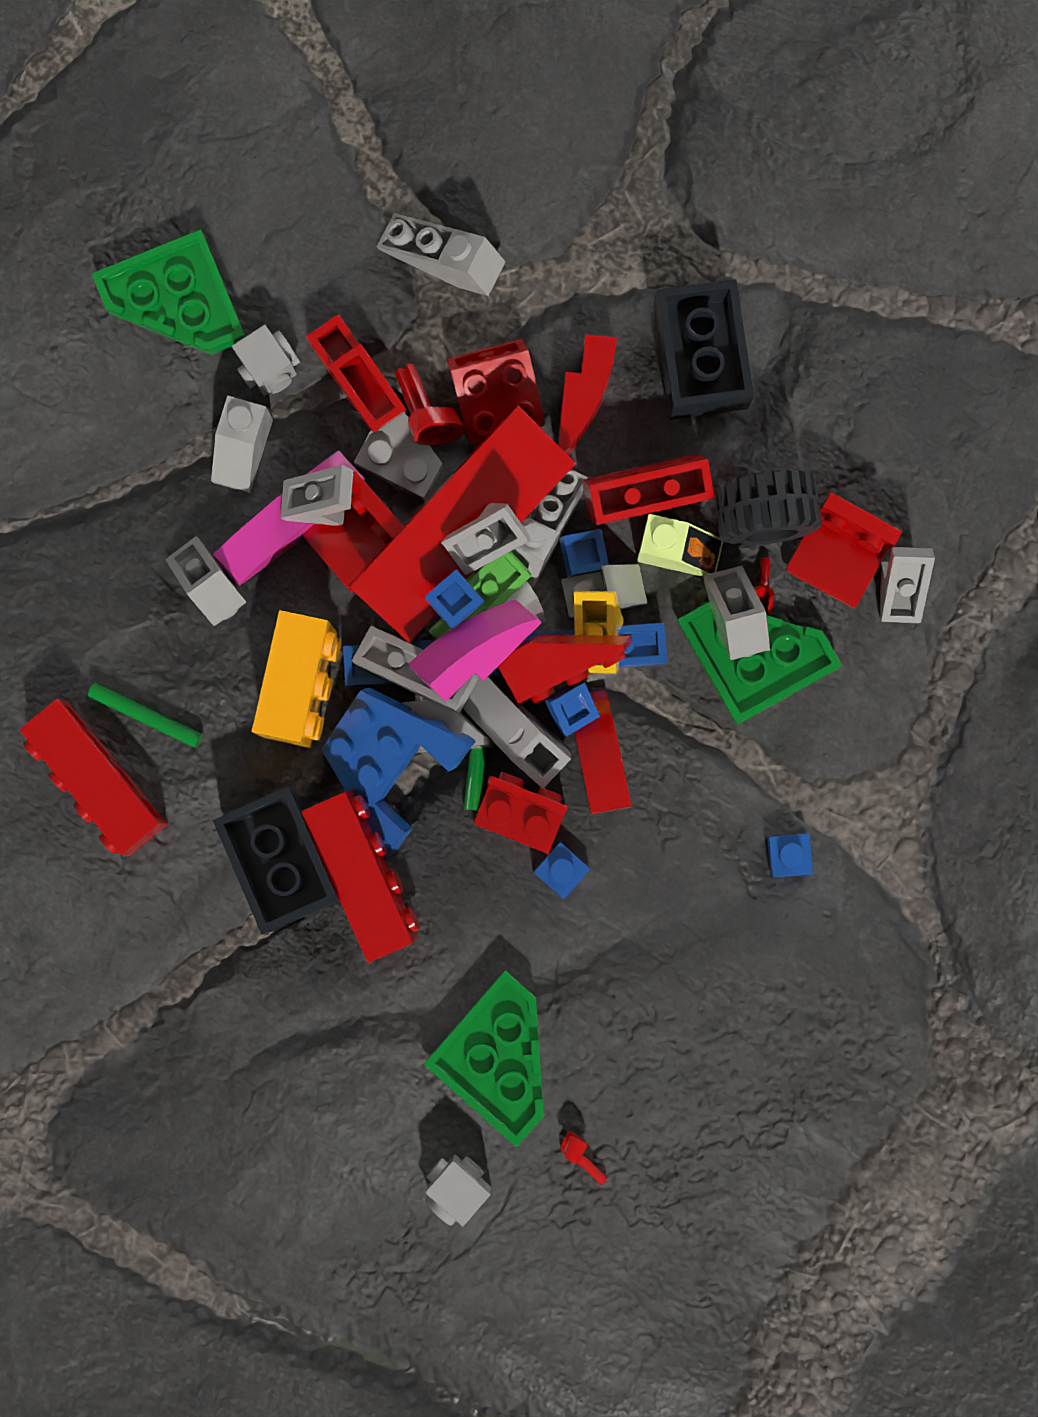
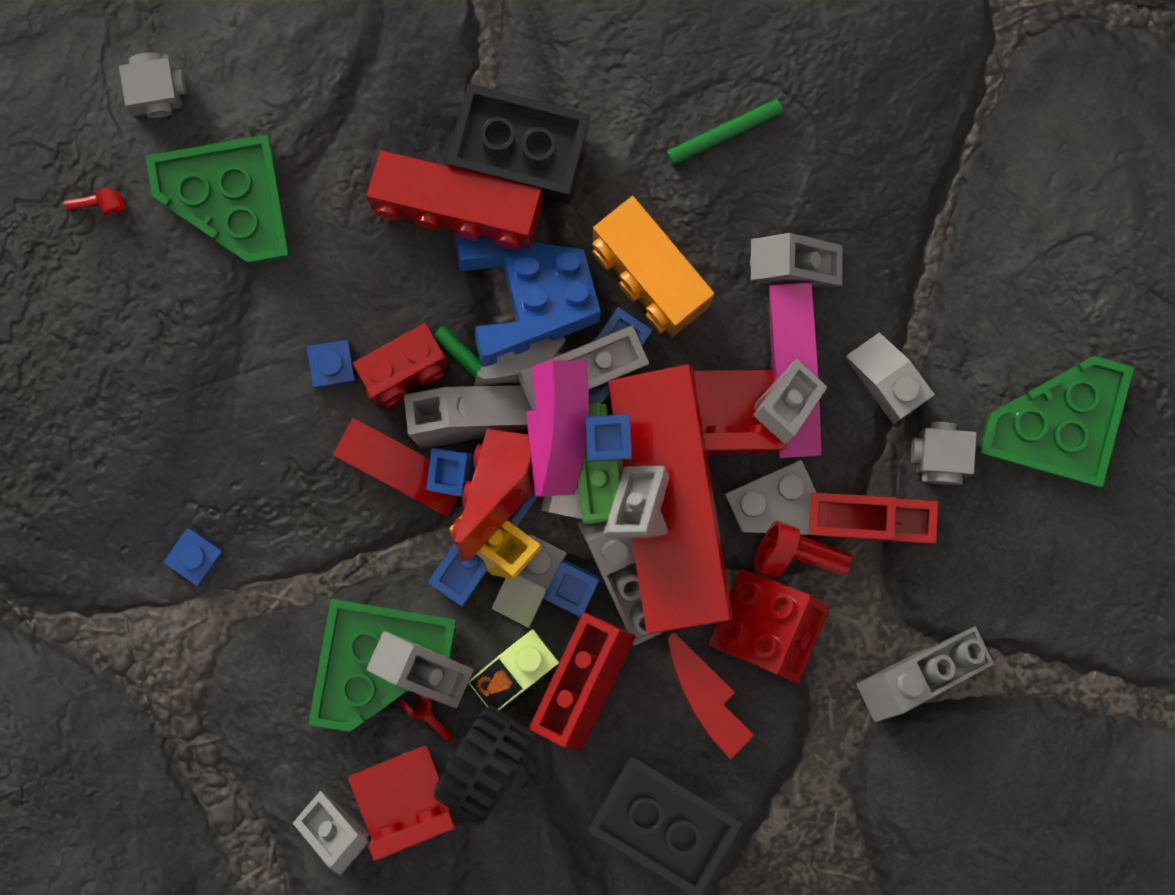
camera: 125 degrees right, 0 degrees up
(92, 777) = (705, 51): red brick -> none

